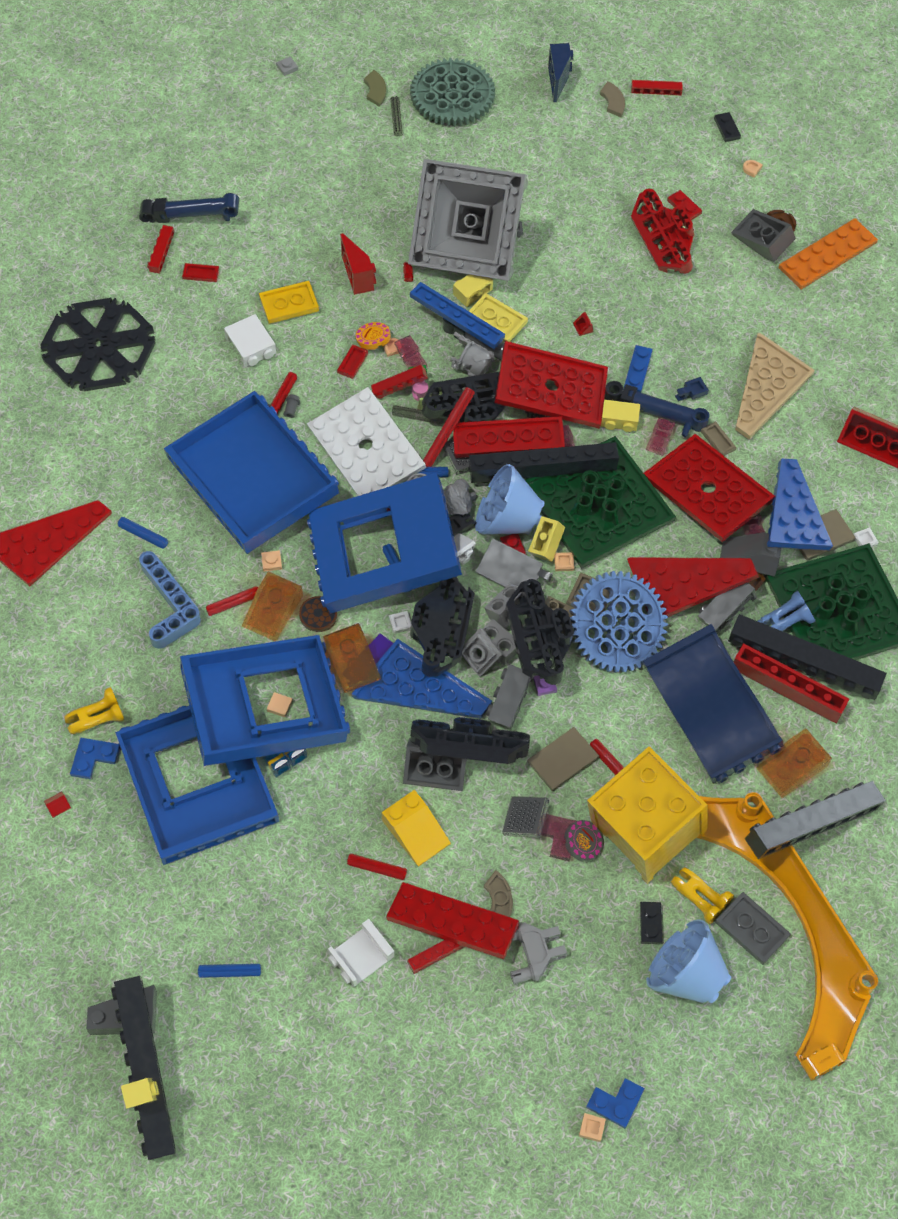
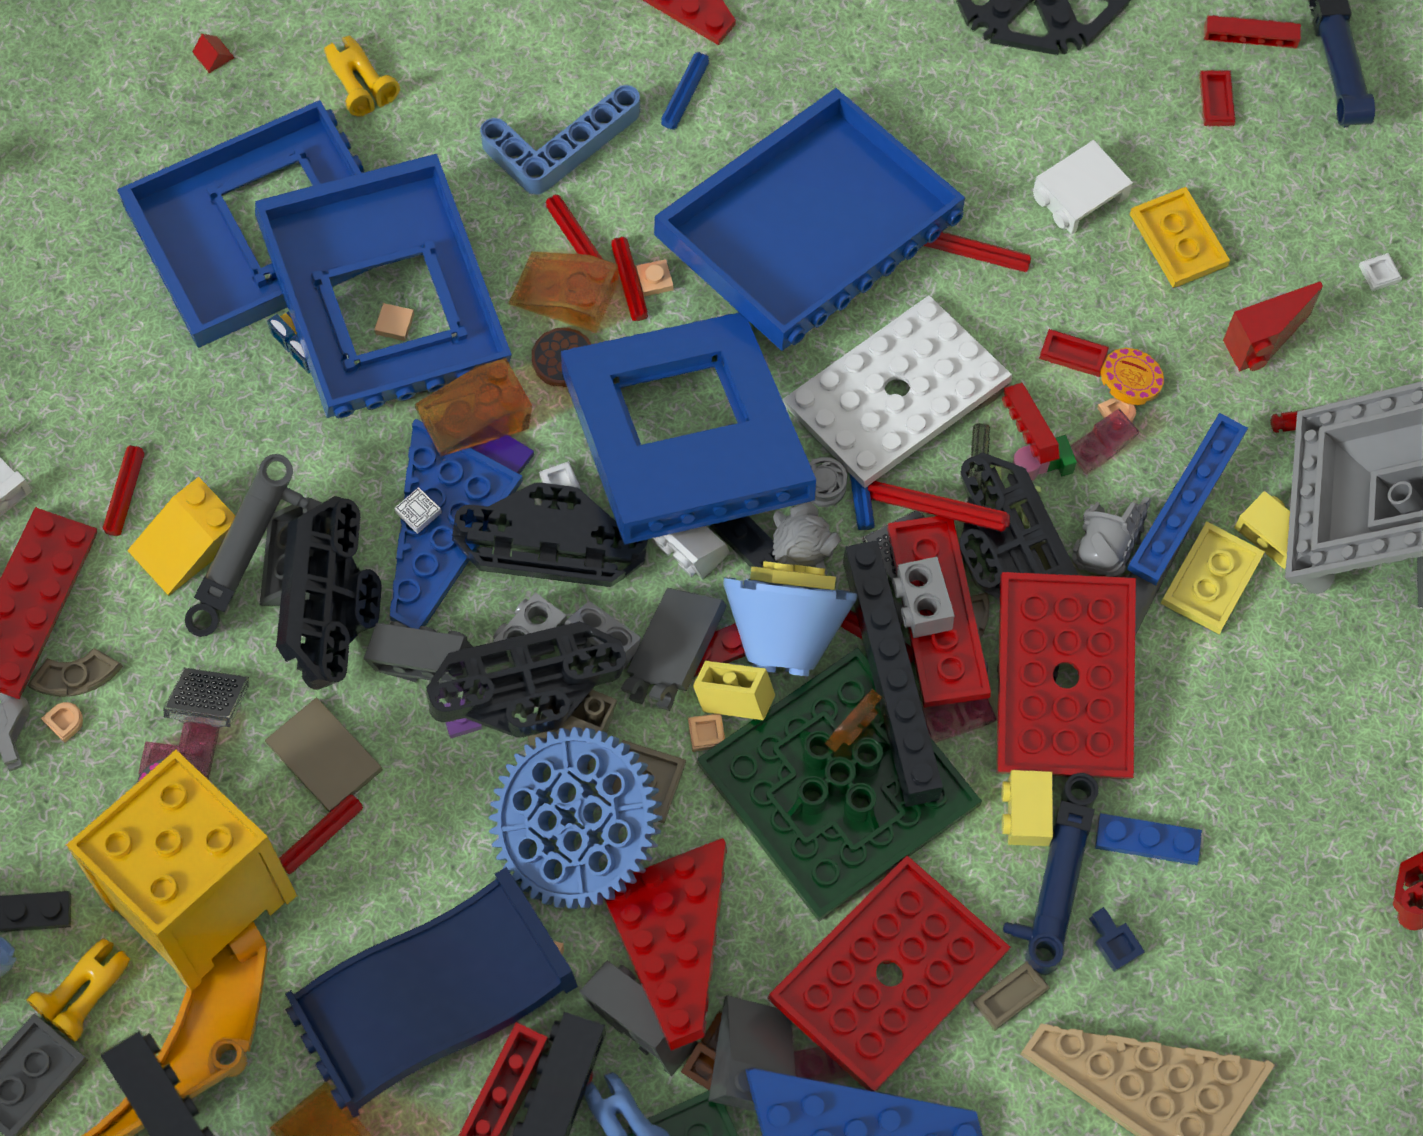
camera: 85 degrees right, 5 degrees up
(91, 751) = (295, 79): blue plate -> none
(258, 575) = (629, 279): none -> red axle
(291, 406) = (961, 268): dark grey pin -> none
(324, 219) = (1380, 272): none -> white tile
(416, 693) = (417, 510): none -> white tile
(457, 805) = (241, 542): none -> dark grey piece
(483, 501) = (801, 576): none -> light yellow plate
(489, 649) = (501, 601): light grey piece -> none
(506, 433) = (931, 596): none -> light grey brick
(529, 905) = (64, 720): none -> light nougat tile
(573, 480) = (849, 729): none -> clear orange plate
(583, 324) = (1231, 734): red slope -> none
(660, 436) = (999, 887): clear pink slope -> none

